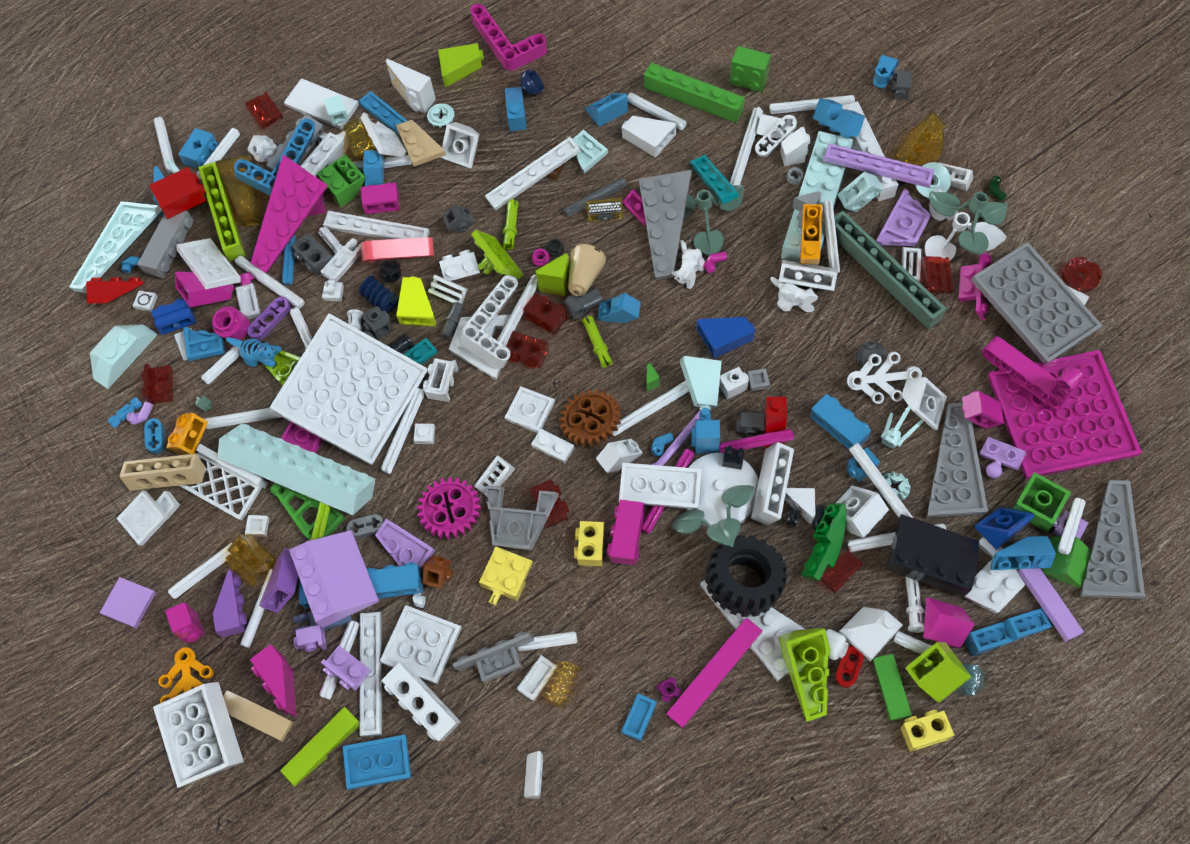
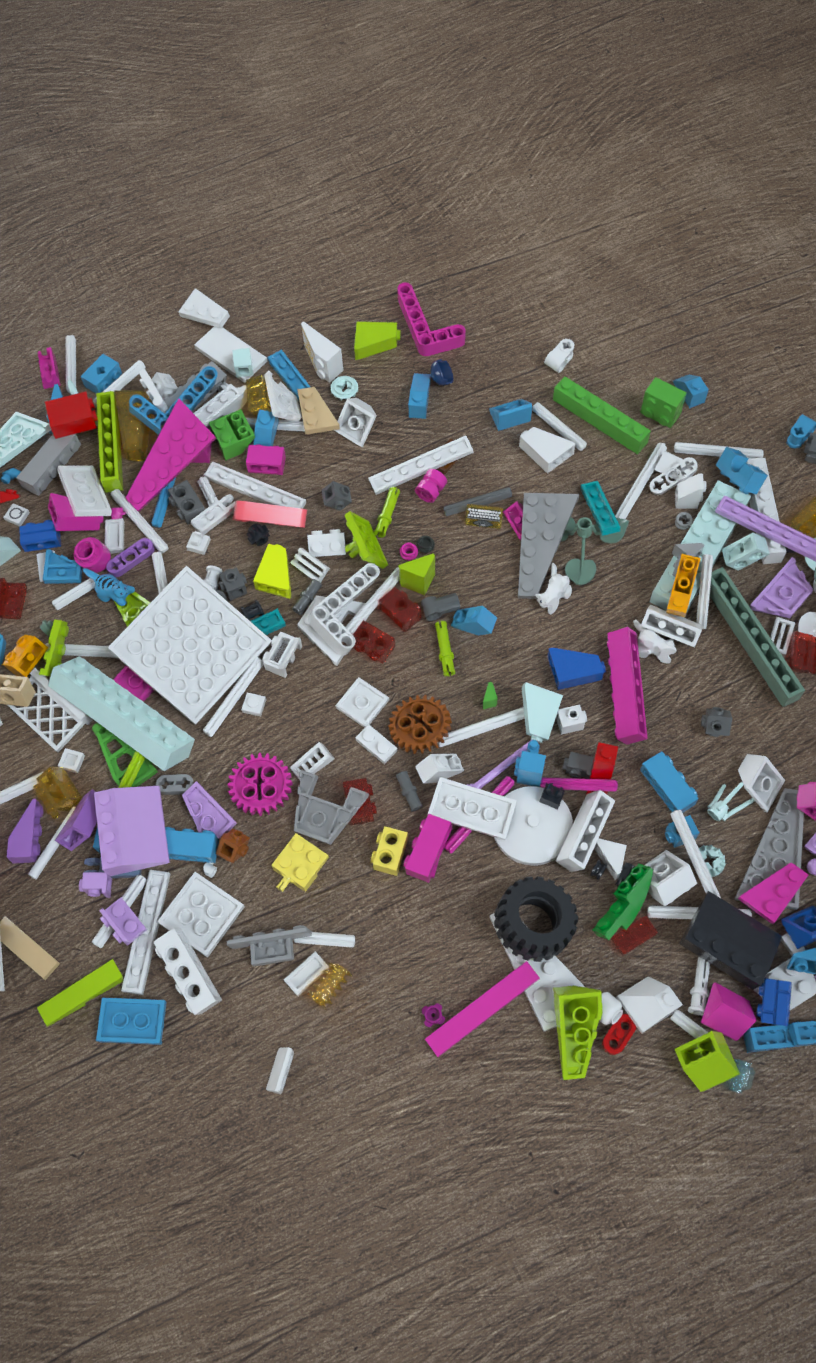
camera: 10 degrees right, 0 degrees up
(143, 154) = (48, 369): none -> dark pink hinge
(215, 412) = (57, 649): none -> lime wing
(254, 154) = (153, 393): none -> white plate
(263, 110) = (173, 349): clear red plate -> none
(277, 678) = (55, 916): dark pink slope -> none
(284, 67) = (203, 310): none -> white wing
(378, 294) = (241, 556): dark blue piece -> none
(547, 189) = (431, 485): none -> dark pink wheel
(584, 268) = (448, 572): tan cone -> none
(590, 149) = (484, 453): light aqua wing -> none
(595, 483) = (409, 791): none -> dark grey pin
(639, 717) = (397, 1036): dark azure tile -> none
(642, 44) = (560, 355): none -> white piece
(659, 443) = (482, 764): dark azure arm -> none
(712, 259) = (580, 589): dark pink arm -> none
(721, 532) = (521, 870): sand green plant -> none
(758, 379) = (596, 721): light grey plate -> none
(777, 49) = (695, 389): none -> dark azure slope
(779, 340) = (626, 686): none -> dark pink brick
(880, 377) = (721, 745): white plant -> none
(891, 687) = (657, 1065): bright green tile -> none
(928, 734) = (683, 1123): light yellow brick -> none
(963, 502) = (775, 892): none -> dark pink wing
(988, 602) = (775, 1002): none -> blue brick

